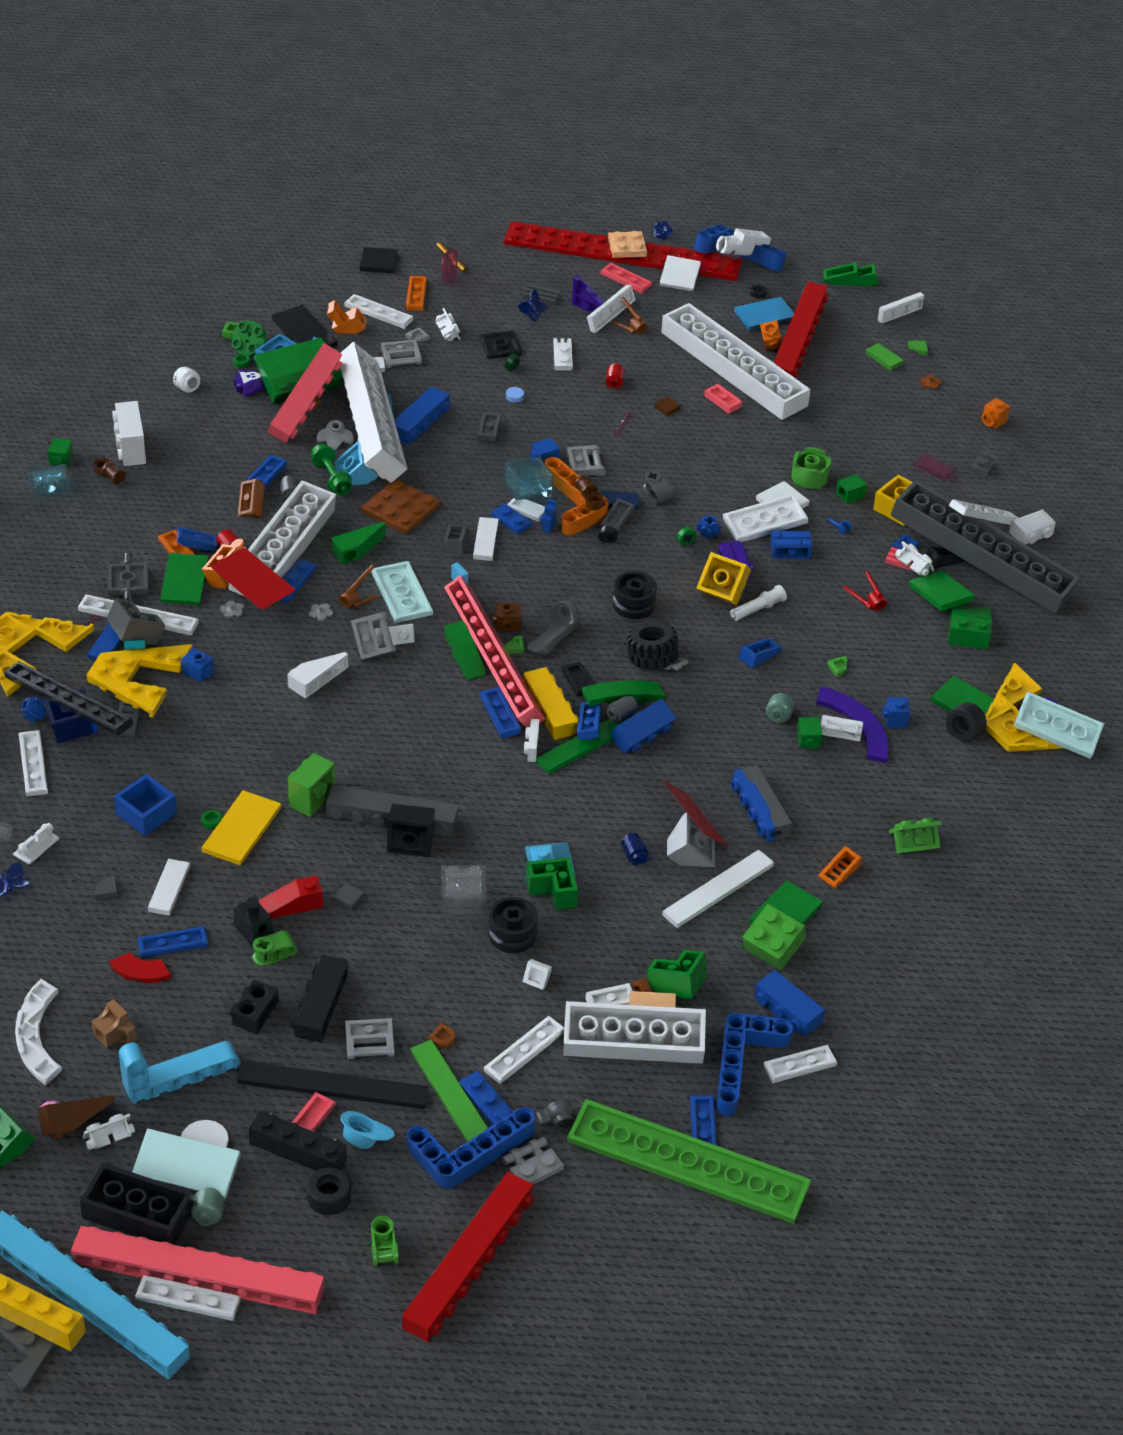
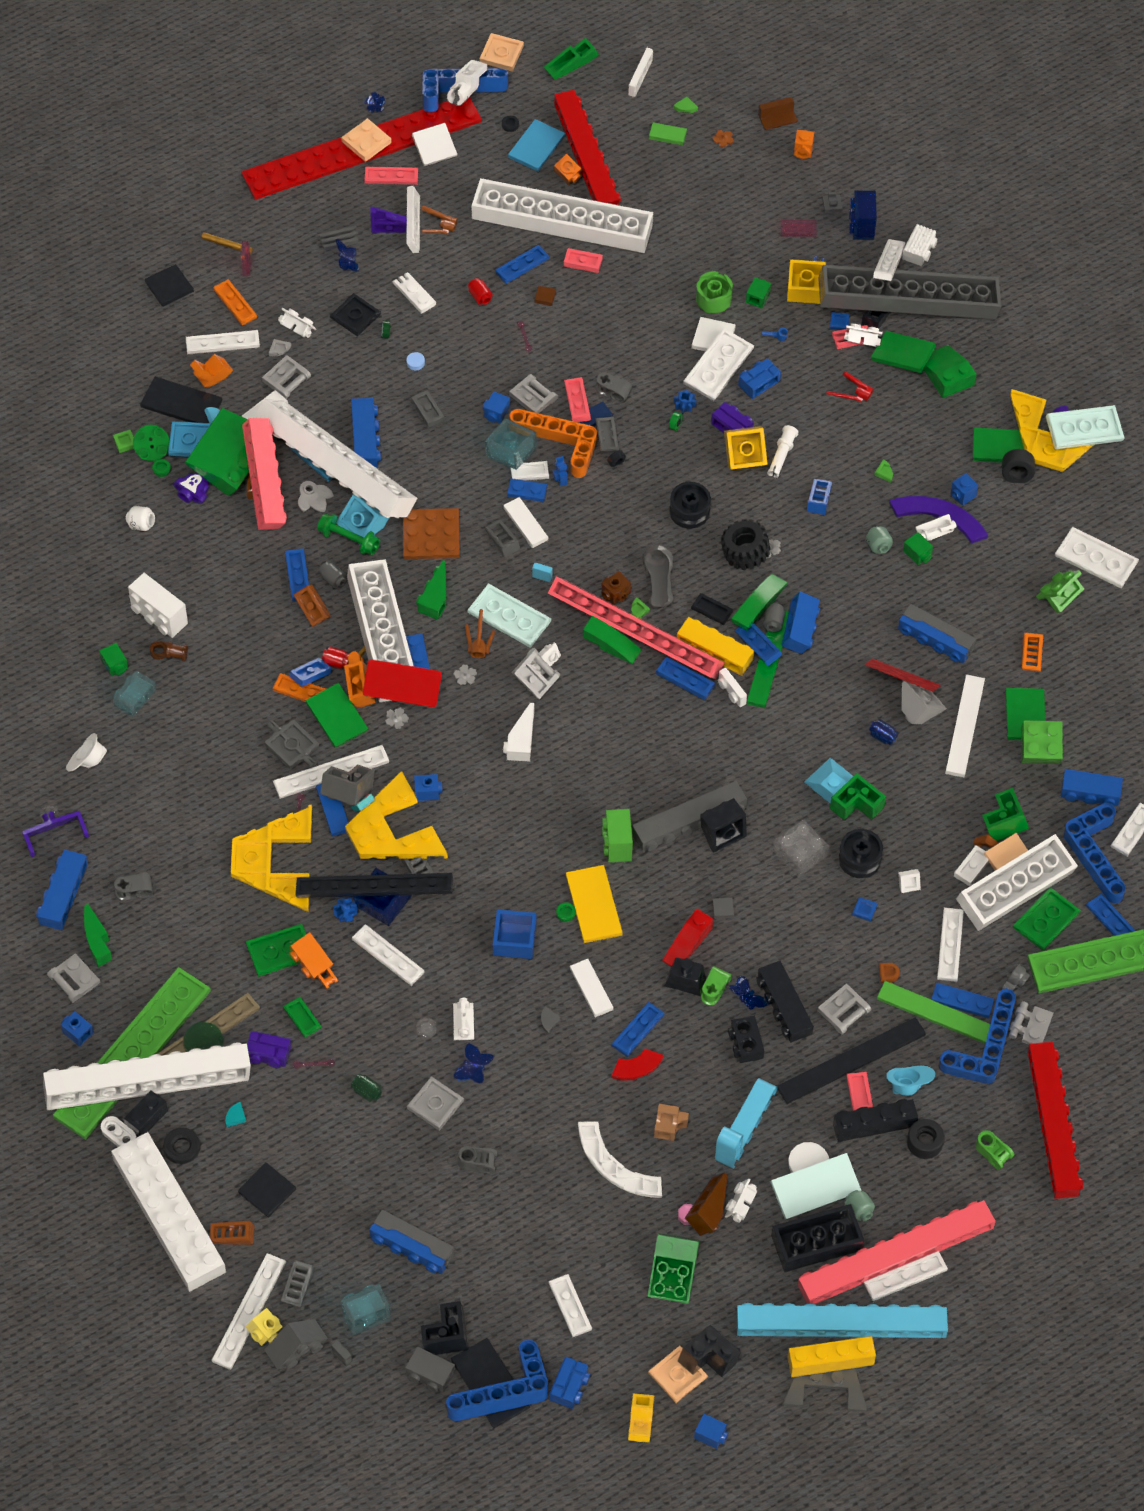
camera: 35 degrees left, 15 degrees up
(294, 973) = (741, 988): none -> clear blue piece
(474, 973) = (864, 909): none -> blue tile
(589, 492) = (577, 429): reddish brown connector -> none
(618, 481) = (577, 400): none -> coral tile
(639, 1085) = (1046, 919): none -> green tile
(670, 378) = (522, 264): none -> blue tile
(798, 246) = (501, 52): none -> light nougat plate
(978, 832) = (1096, 557): none -> white tile
(994, 385) = (777, 113): none -> reddish brown panel
(998, 480) = (863, 215): none -> clear blue brick

